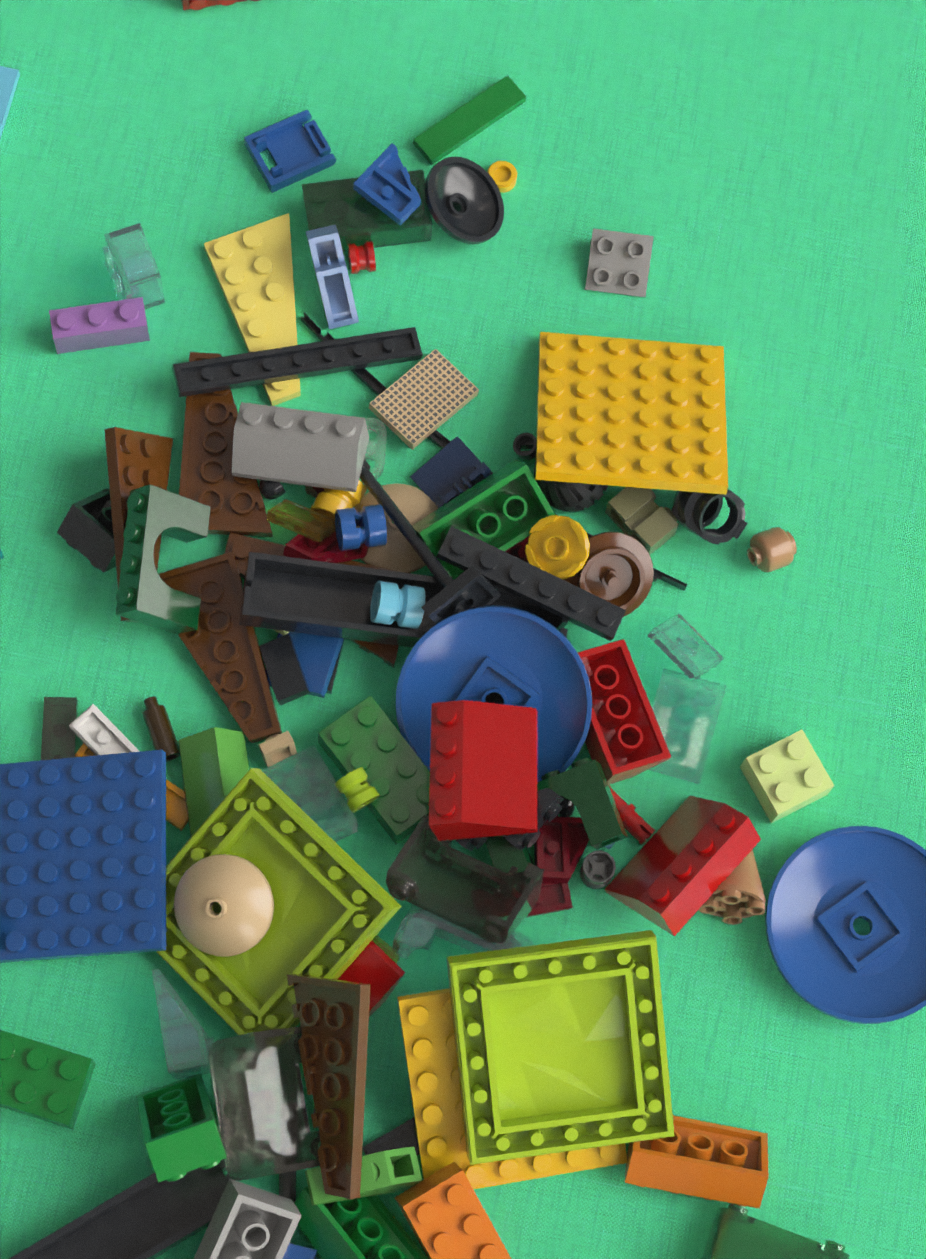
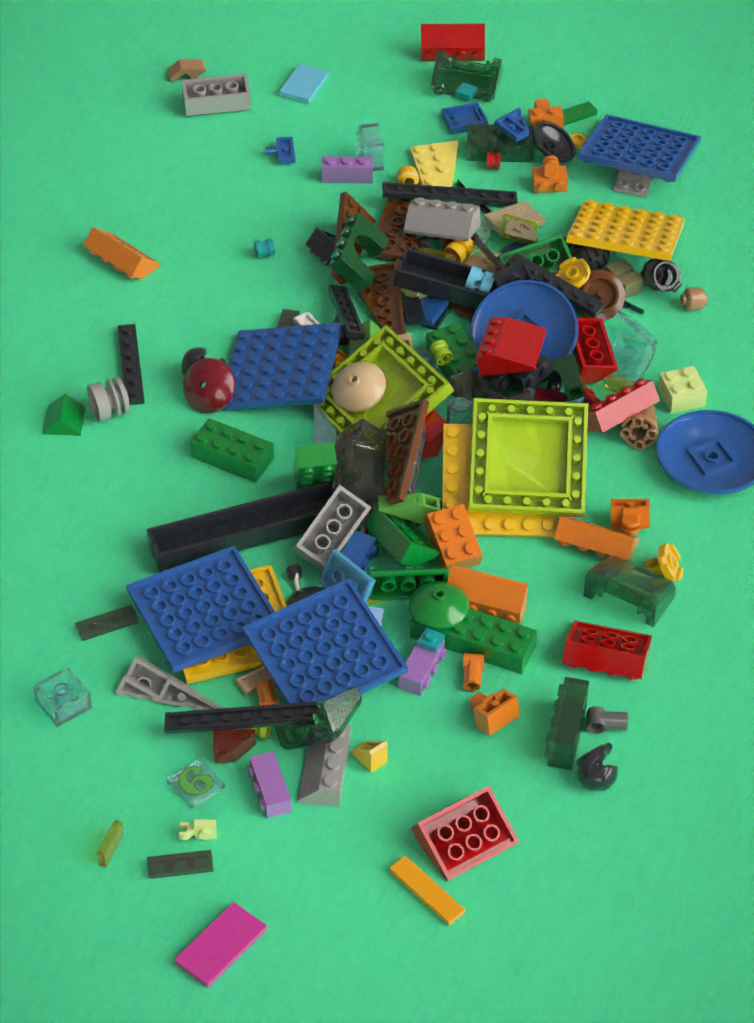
camera: 20 degrees right, 25 degrees down
(165, 705) = (346, 312): none -> black plate
(213, 326) = (407, 175): none -> yellow head
(277, 54) = (451, 73): none -> clear green windscreen
(281, 84) = (466, 91): none -> teal tile
(332, 276) = (475, 163): medium blue slope -> none
(371, 531) = (468, 254): blue wheel -> none
(437, 138) = (543, 112): none -> orange brick
(440, 434) = (519, 229): none -> slope
(470, 288) = (549, 177): none -> orange brick
(620, 195) = (639, 148): none -> blue plate
(681, 784) = (615, 383): none -> clear yellow tile
(748, 1103) = (630, 515): none -> orange brick
(830, 1206) = (666, 563): none -> yellow tile

